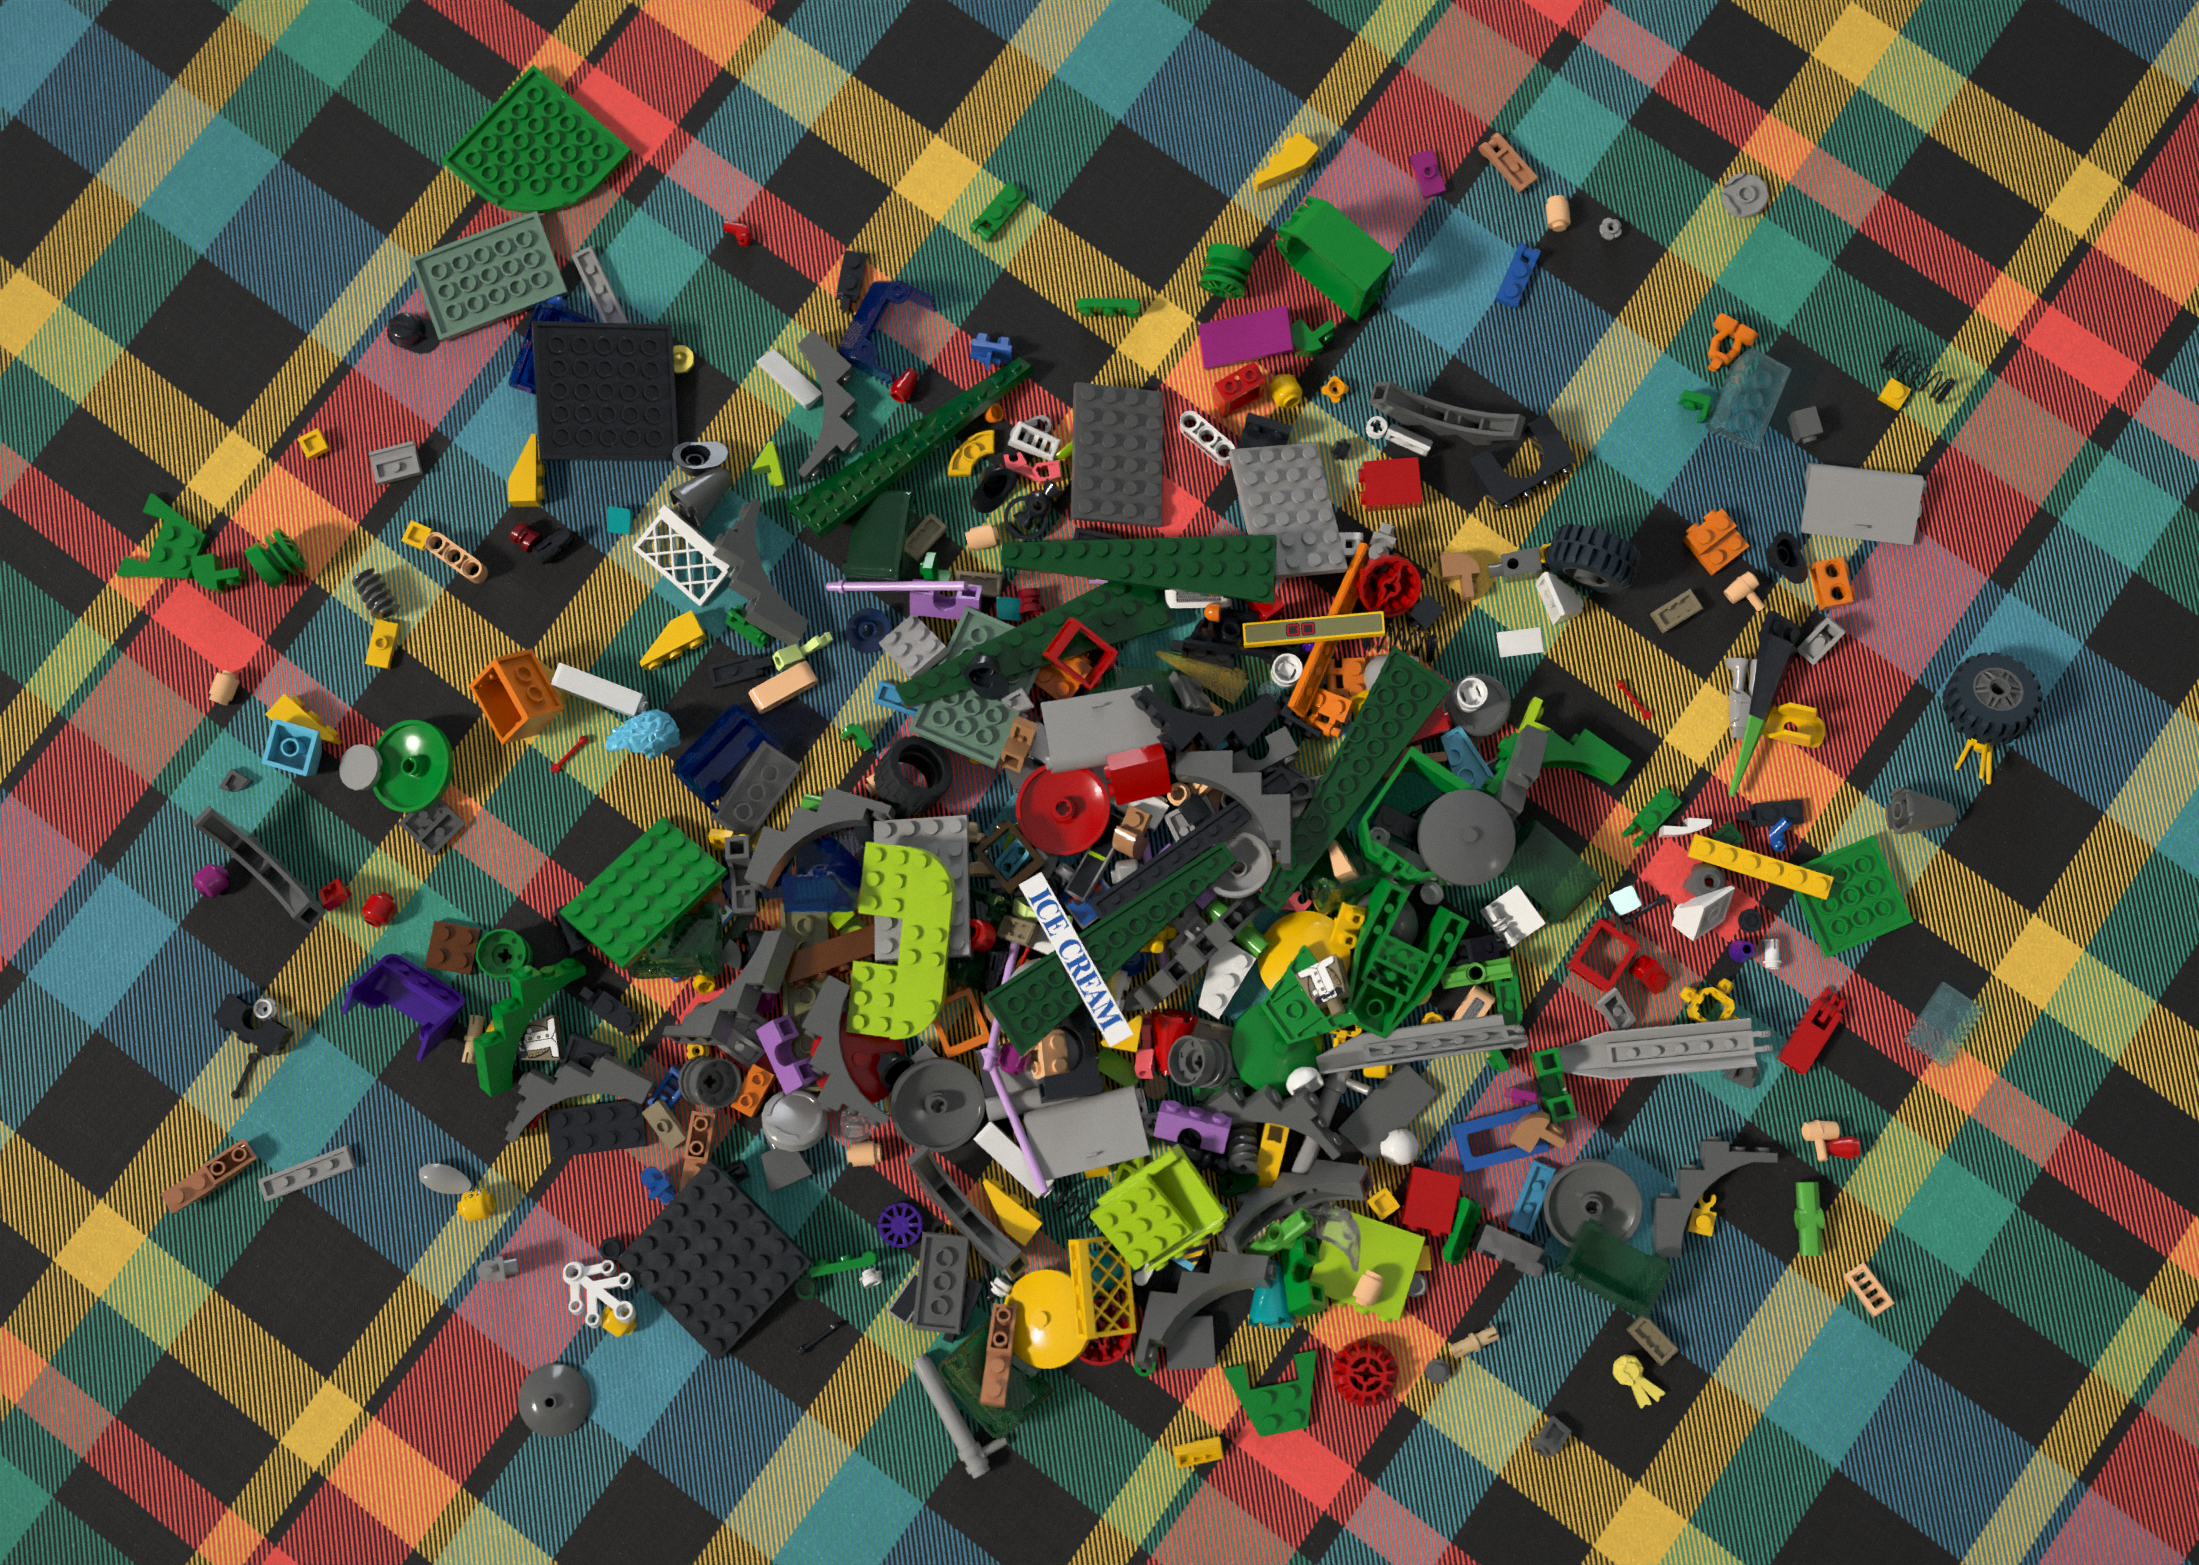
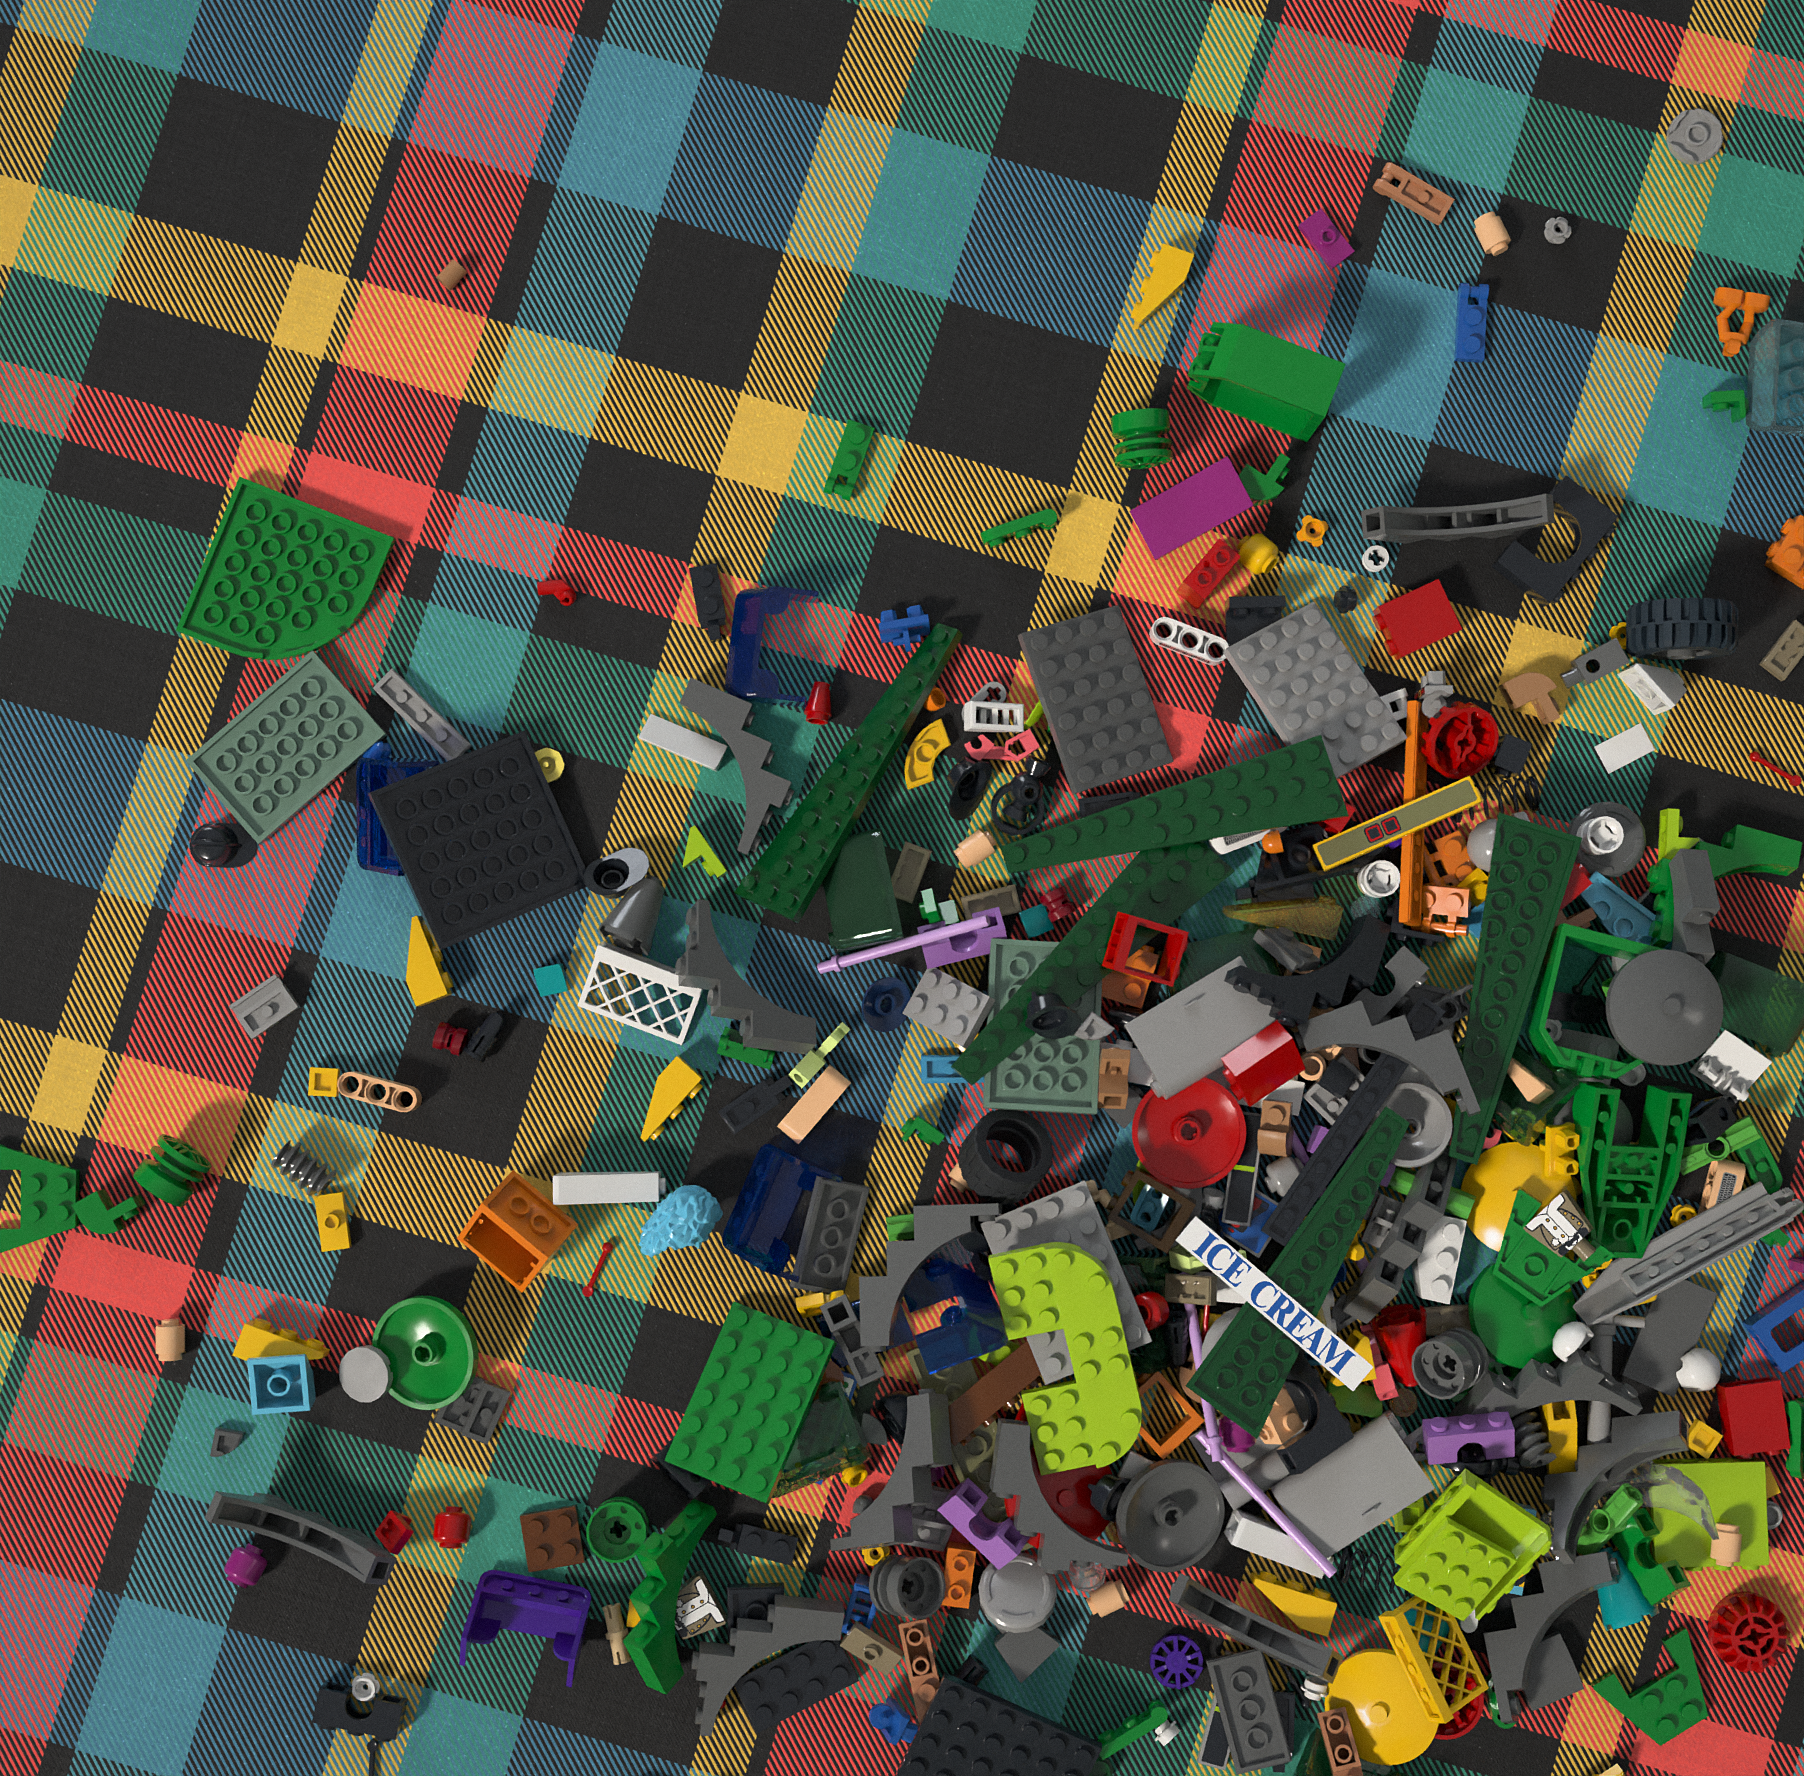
camera: 30 degrees left, 5 degrees up
(313, 444) = (160, 1018): yellow plate -> none
(1239, 1183) = (1541, 1477): dark green plate -> none
(1408, 439) = (1417, 559): white slope -> none

